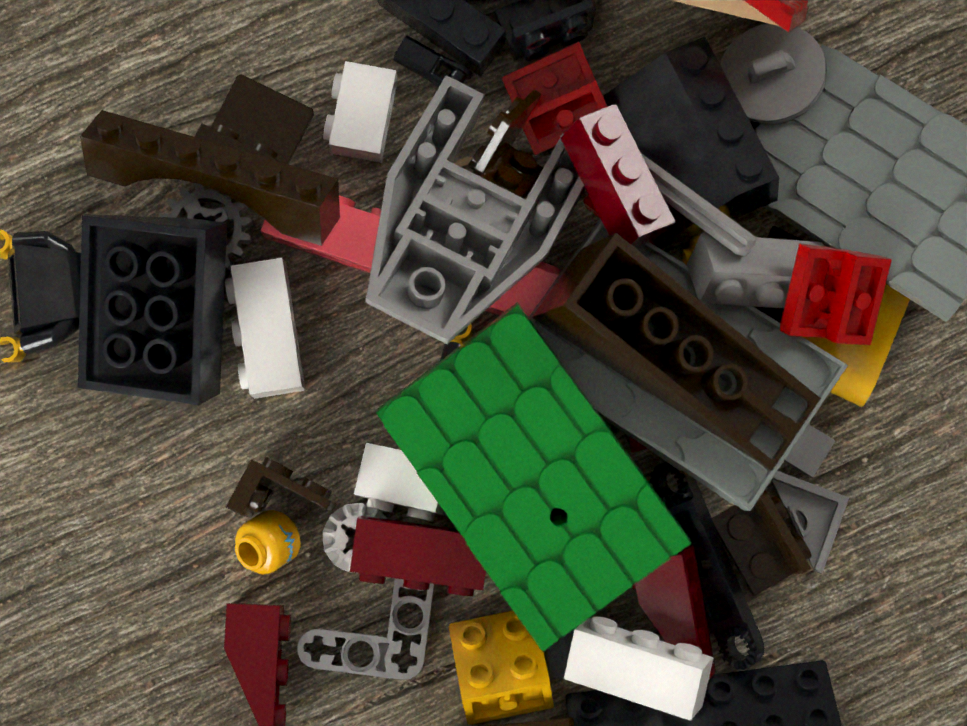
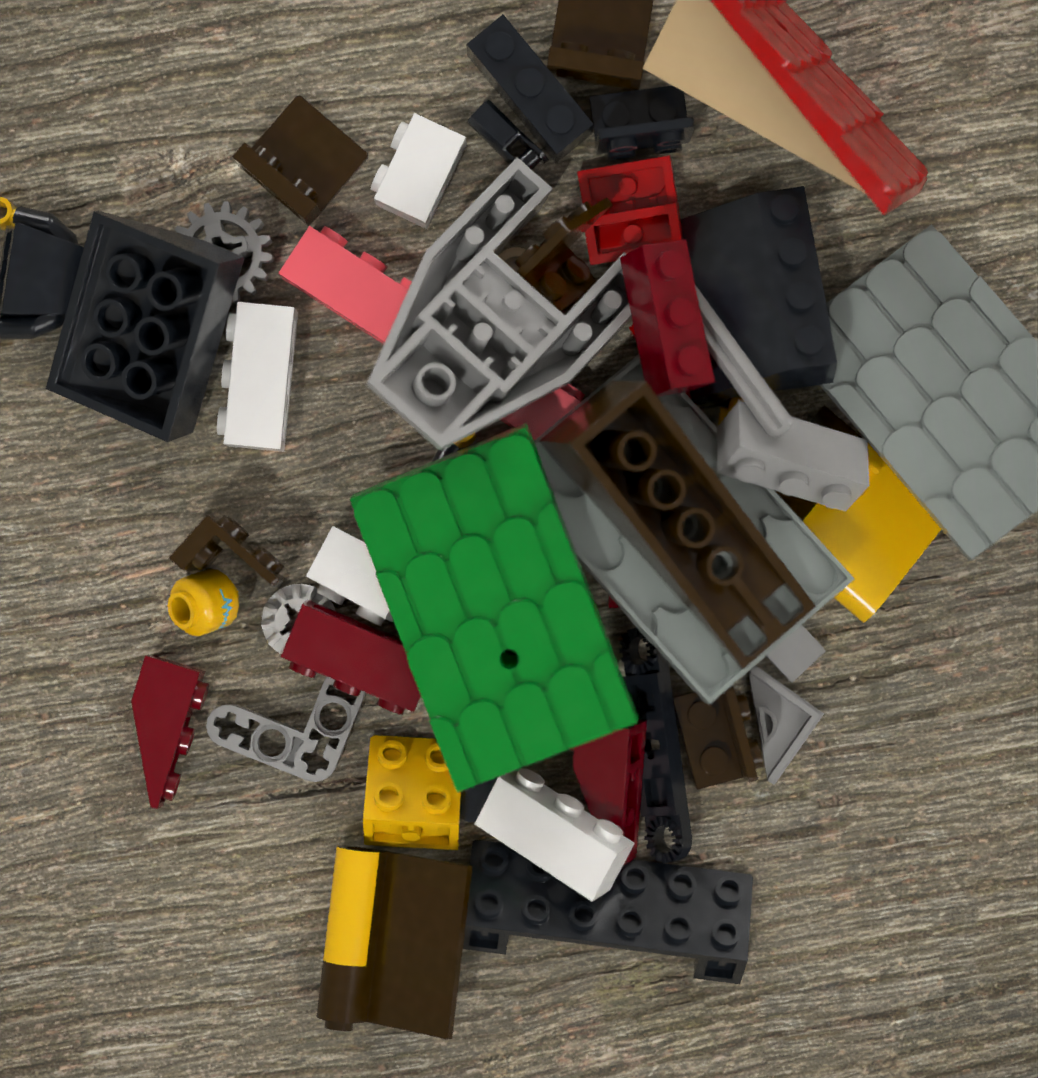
camera: 15 degrees right, 5 degrees up
(286, 196) = (311, 244): dark brown arch -> none
(775, 72) = (867, 251): light grey shield -> none
(835, 294) = (861, 501): red slope -> none

